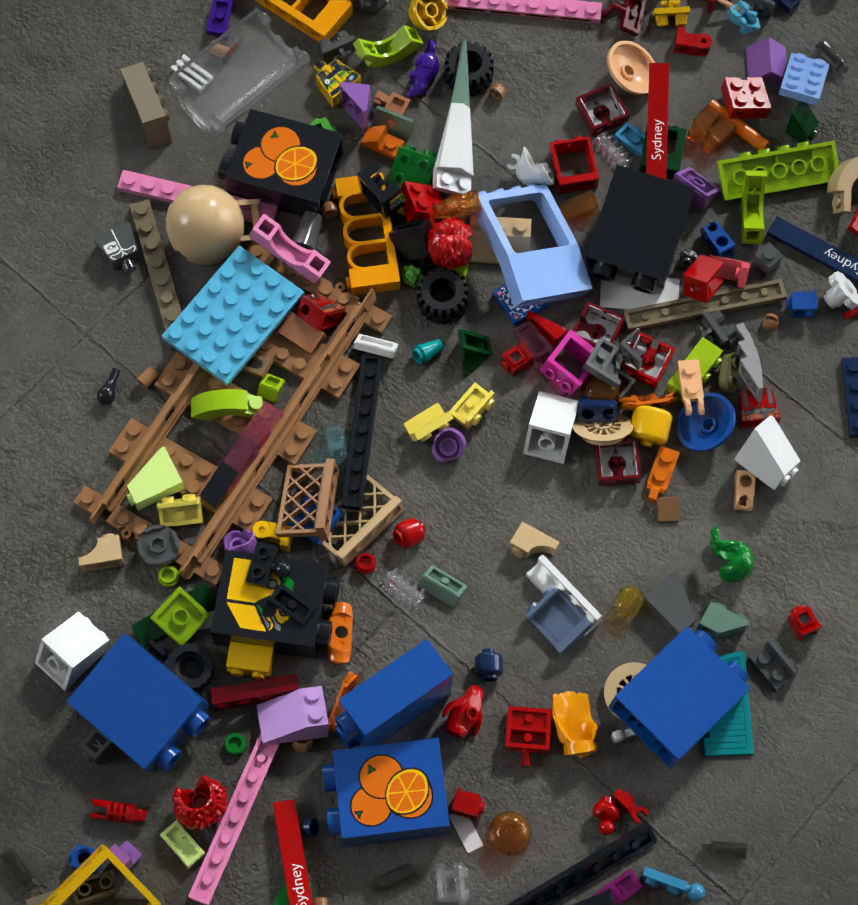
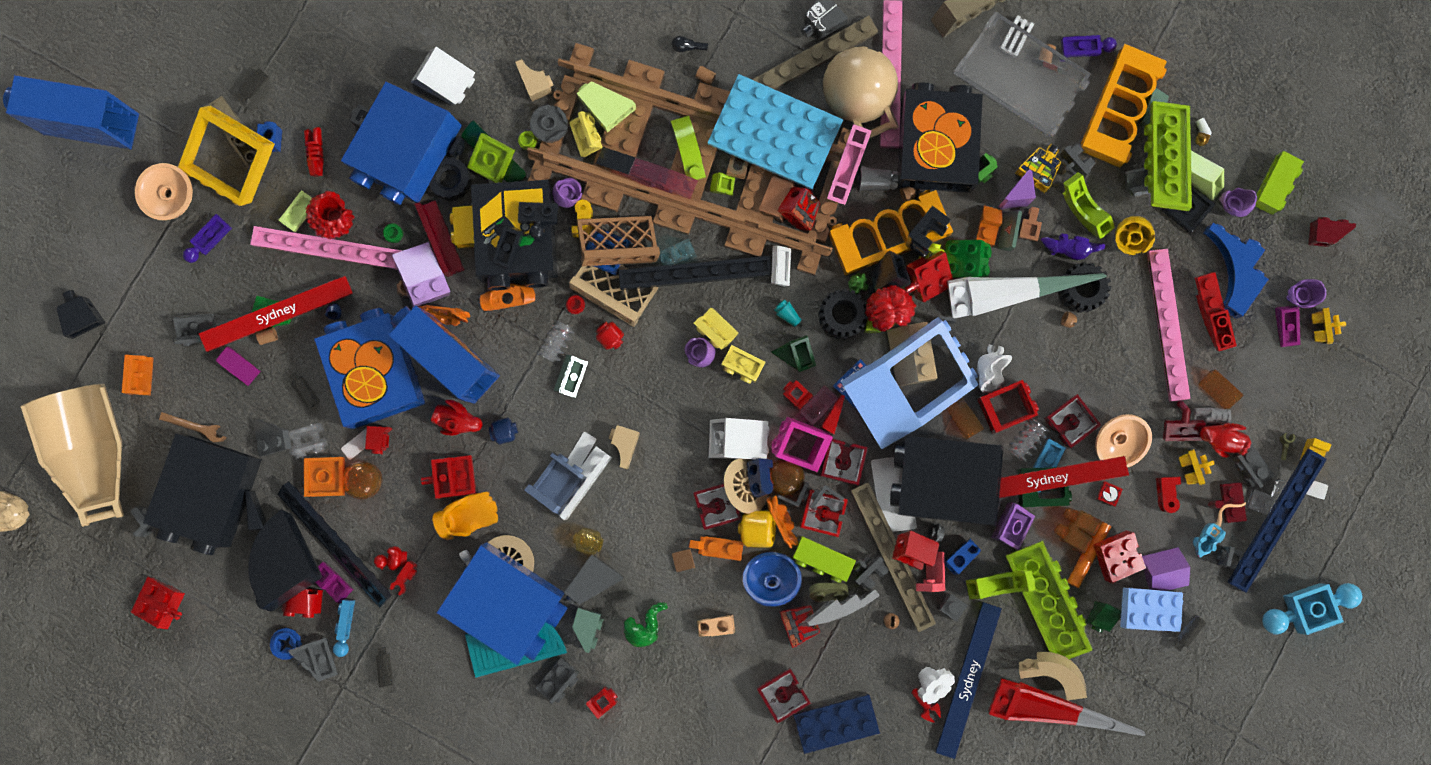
camera: 80 degrees right, 15 degrees up
(126, 854) = (277, 166): medium lavender bracket -> none
(458, 206) = (928, 308): clear orange hips -> none
(497, 874) = (323, 476): none -> orange plate
(525, 590) = (581, 449): none -> white sticker
(604, 362) = (805, 474): dark grey wing -> none
(681, 95) = (1109, 494): none -> tile
(691, 385) = (803, 558): light nougat hinge -> none
(769, 455) = (749, 643): white slope -> none
(802, 304) = (914, 648): blue window -> none
(834, 429) = (777, 702): none -> piece

